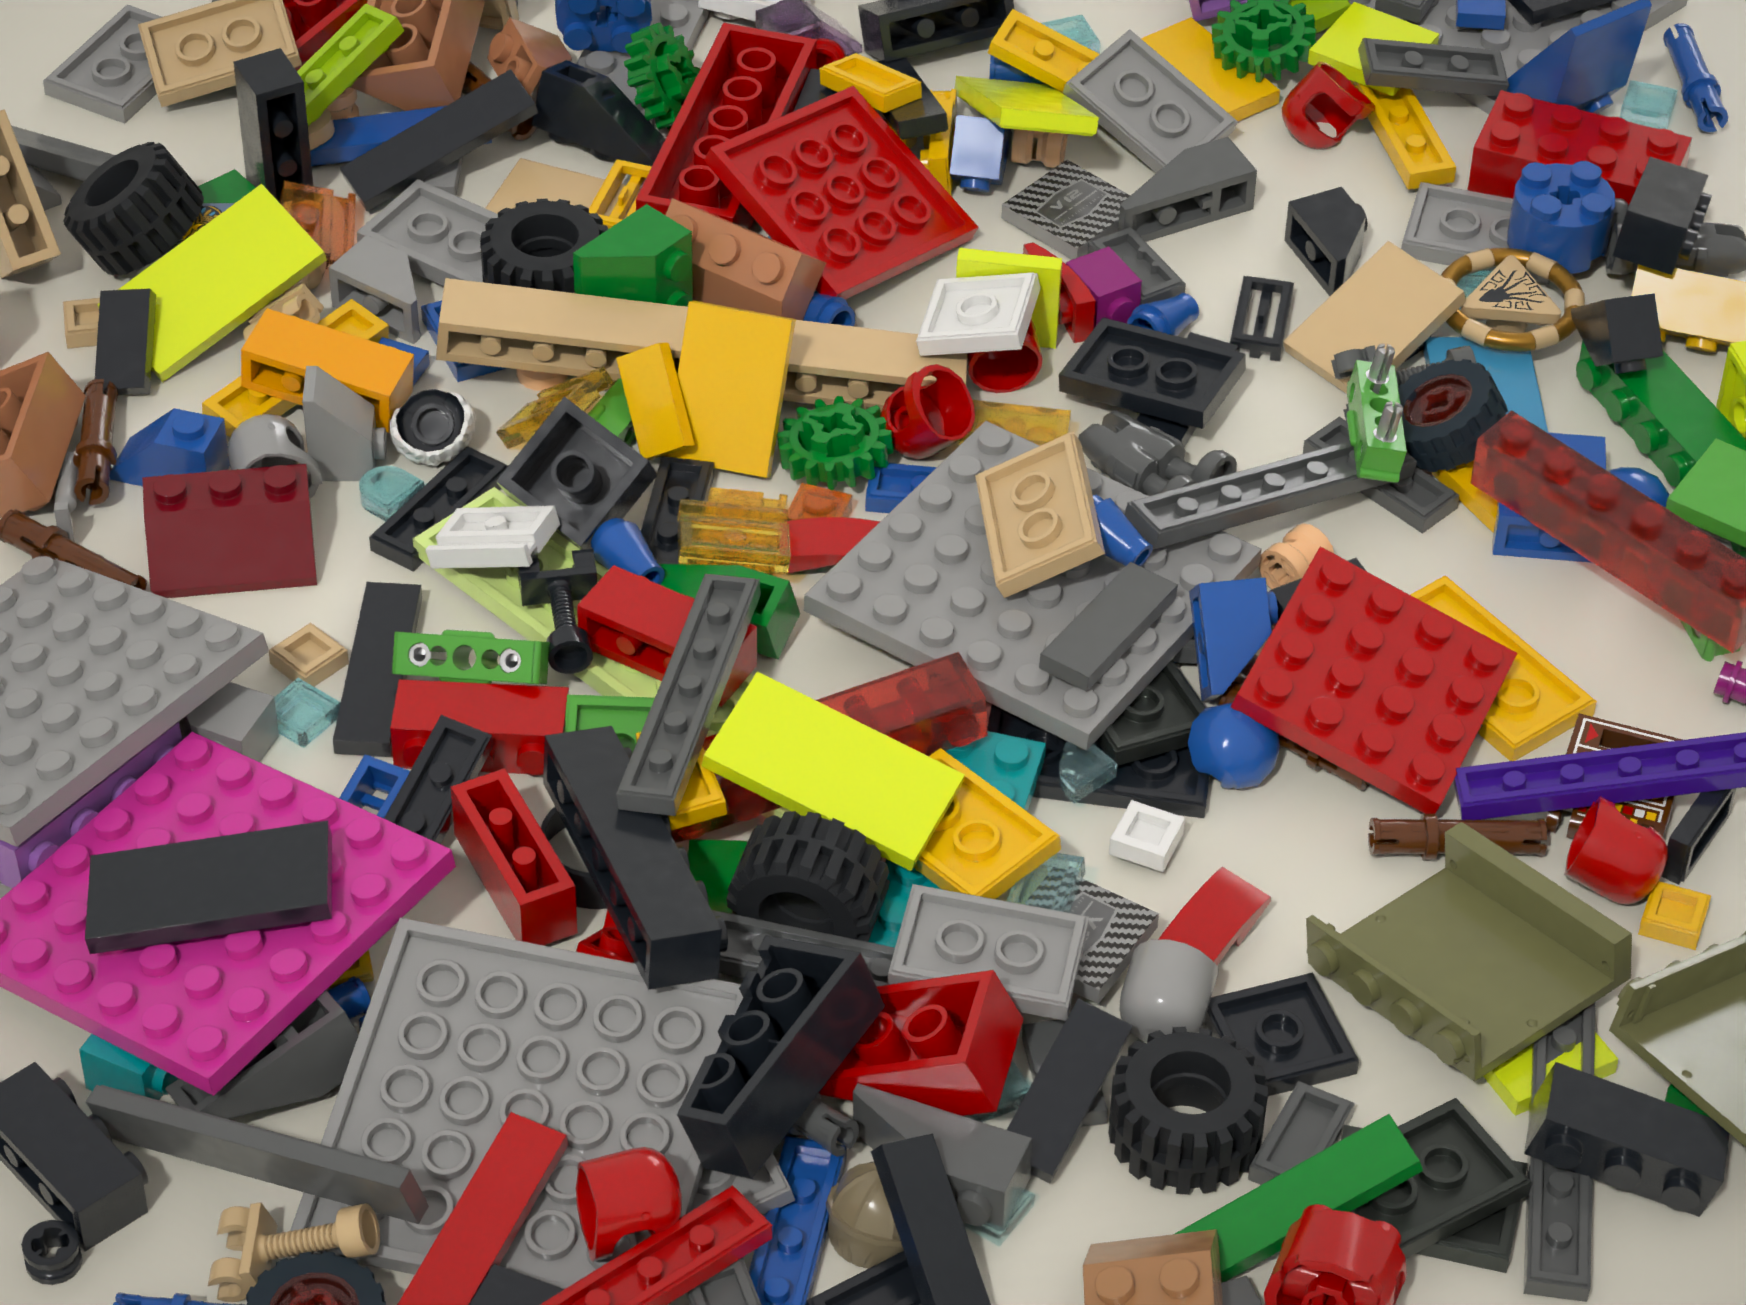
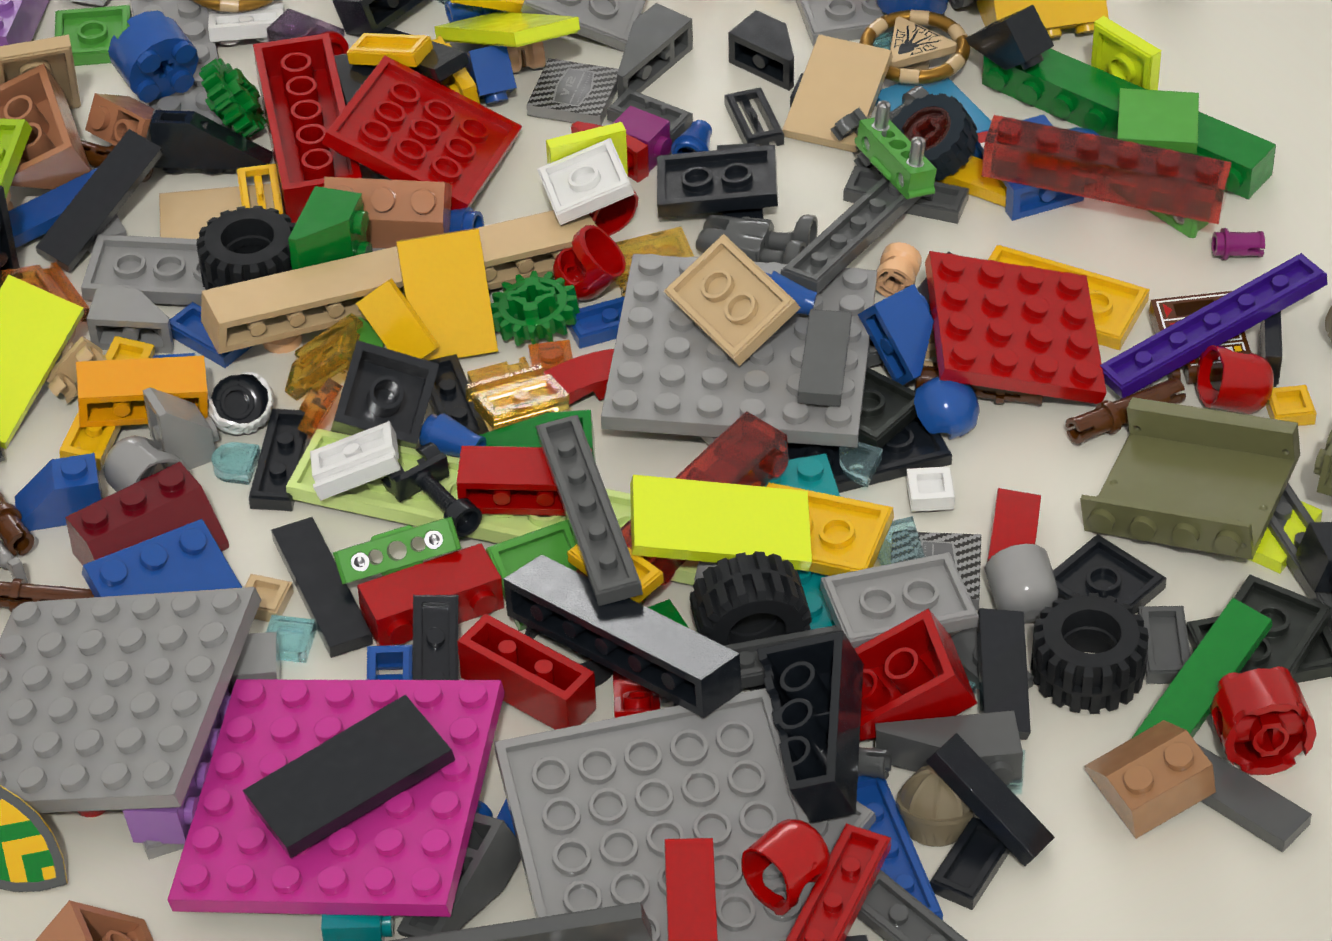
camera: 25 degrees left, 0 degrees up
(221, 576) = (164, 564): none -> blue wing
(498, 459) = (318, 405): none -> clear orange plate

